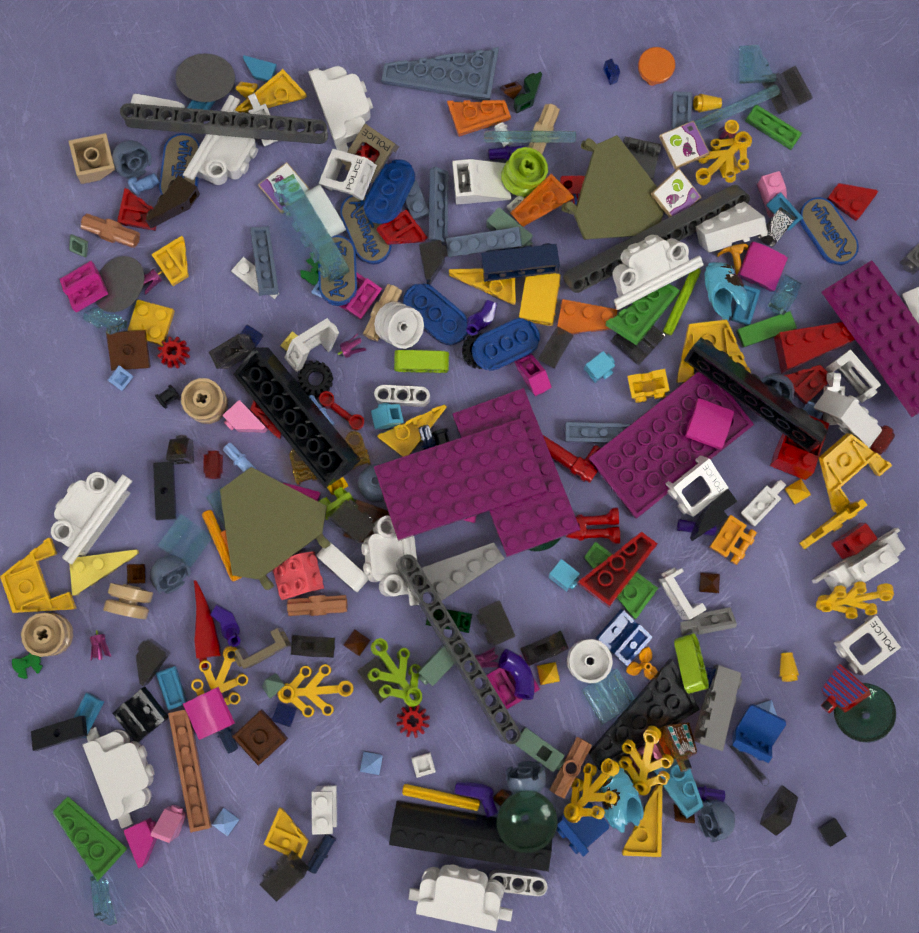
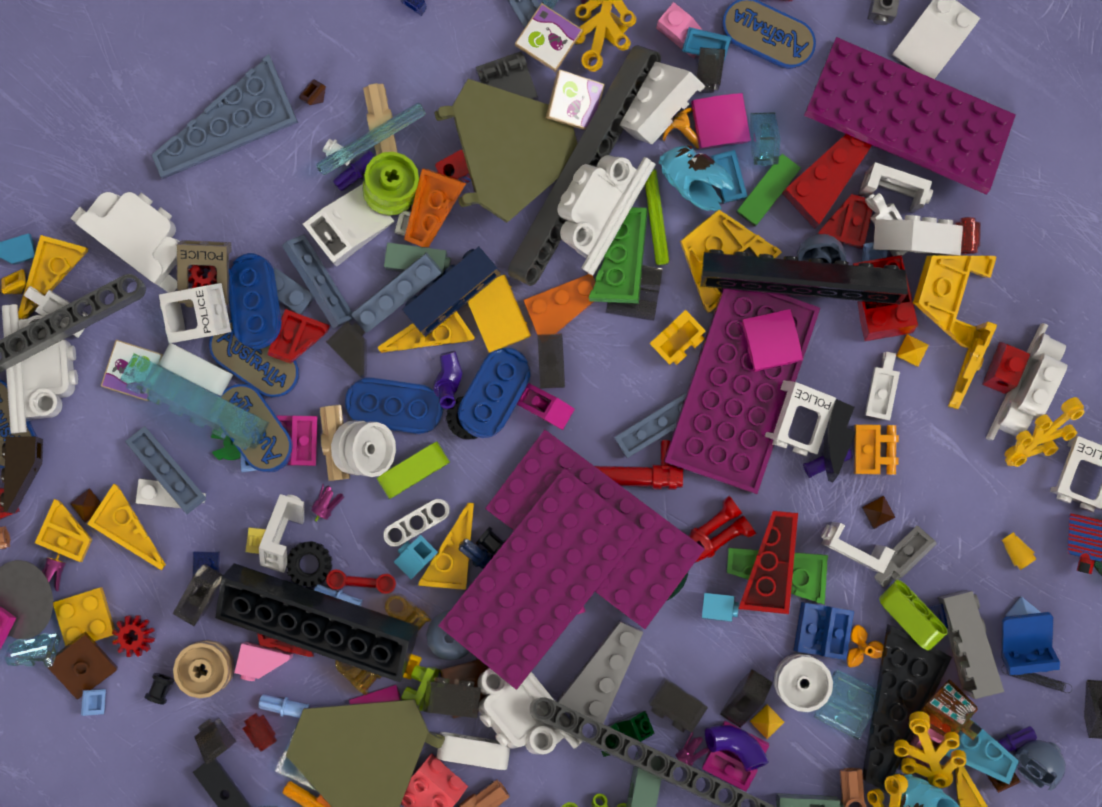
camera: 30 degrees left, 5 degrees up
(199, 253) = (86, 505): none -> reddish brown slope
(213, 277) = (120, 523): none -> yellow wing
(477, 115) = (295, 148): orange wing -> none
(531, 87) = (334, 75): dark green slope -> none
(600, 367) = (613, 350): medium azure brick -> none

